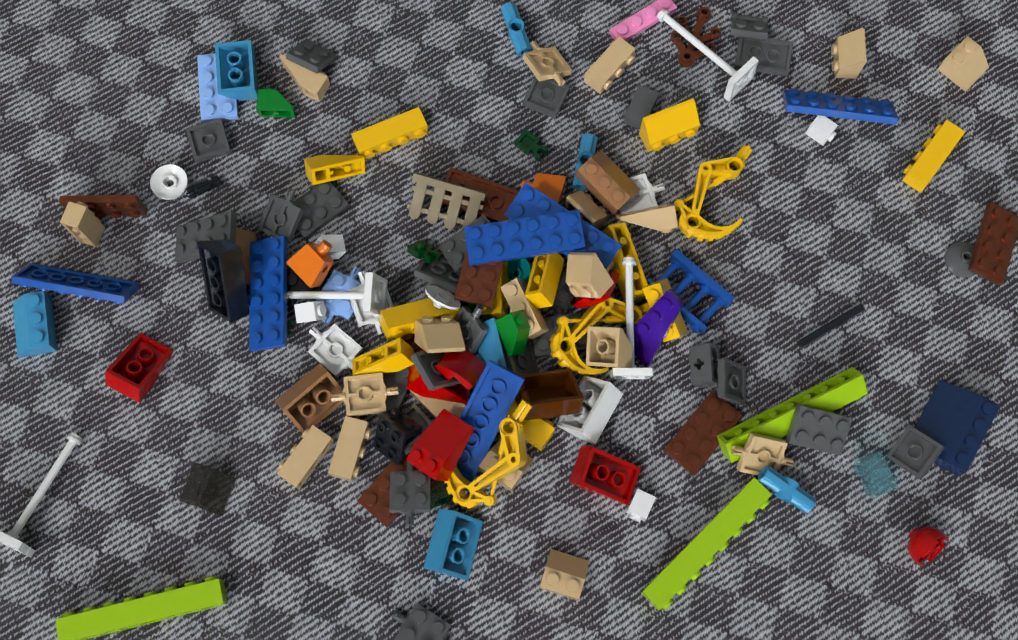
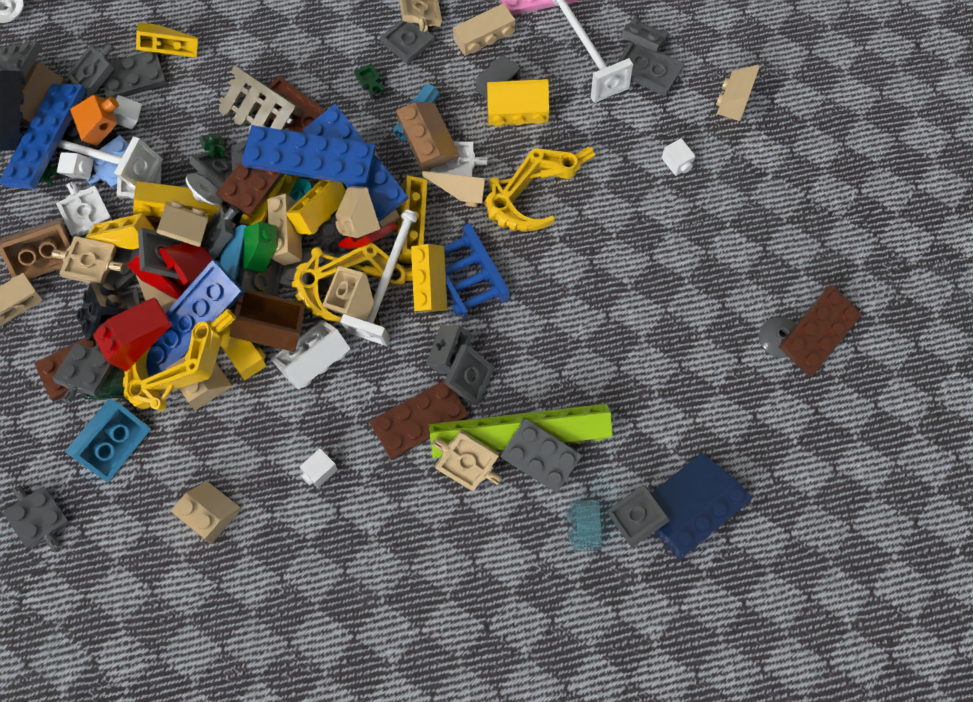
camera: 20 degrees right, 5 degrees down
(203, 186) = (35, 21): black axle -> none
(350, 449) = (50, 310): tan brick -> none
(390, 133) = (235, 27): yellow brick -> none
(549, 185) = (368, 124): orange torso -> none
(588, 209) = (394, 156): tan slope -> none
(604, 474) = (295, 424): red slope -> none
(654, 327) = (406, 290): dark purple wing -> none
(689, 52) = (594, 35): copper plant -> none
(706, 544) = (369, 533): lime brick -> none
(786, 489) = (479, 505): dark azure piece -> none
(829, 326) = (598, 357): black bar -> none
(839, 106) = (705, 139): blue plate -> none
(925, 544) = (609, 619): red cylinder -> none
(933, 156) = (788, 220): yellow brick -> none
(965, 64) = (862, 140): tan slope -> none

